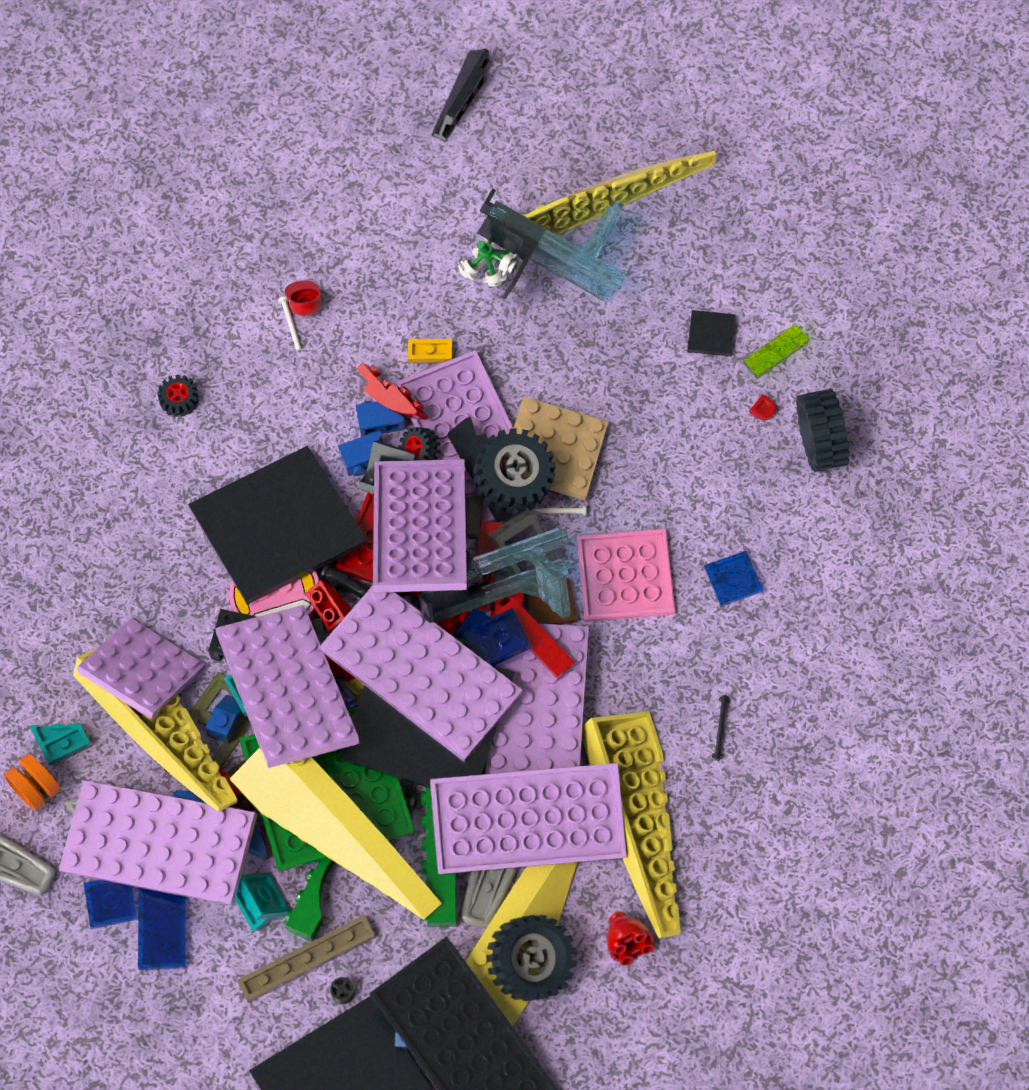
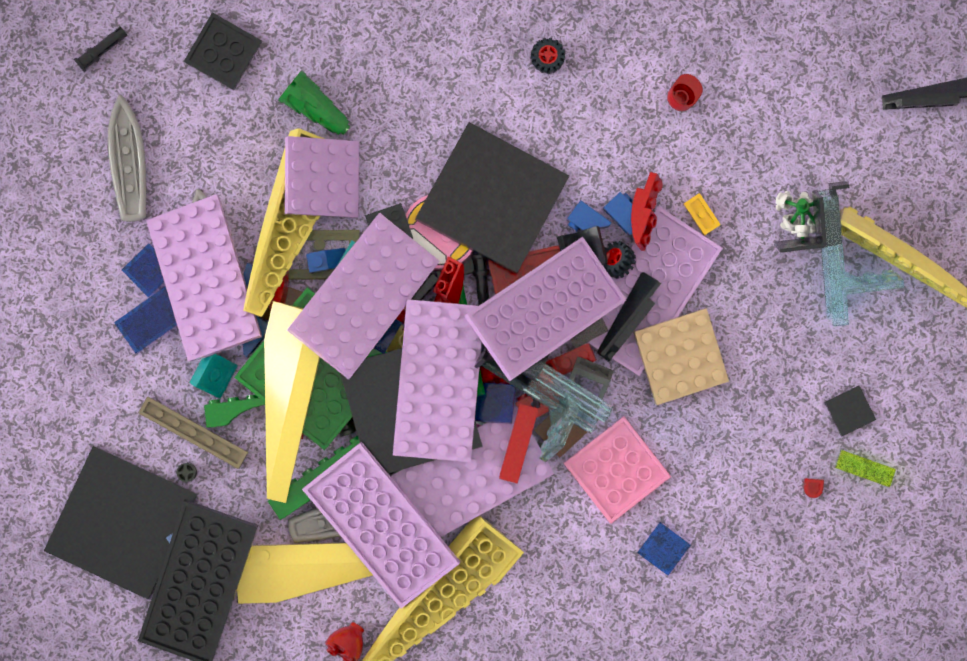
camera: 55 degrees right, 20 degrees up
(35, 778) = (191, 159): orange wheel -> none
(56, 636) = (307, 99): none -> green cone
(60, 740) = (237, 155): teal wing -> none
(284, 301) = (659, 96): white piece -> none
(501, 637) = (500, 421): clear blue tile -> none
(512, 490) = (651, 331): black wheel -> none
(547, 947) = (269, 591): black wheel -> none
(583, 510) = (637, 391): white piece -> none
(724, 700) = (544, 610): black axle -> none
(823, 430) = (815, 548): black wheel -> none

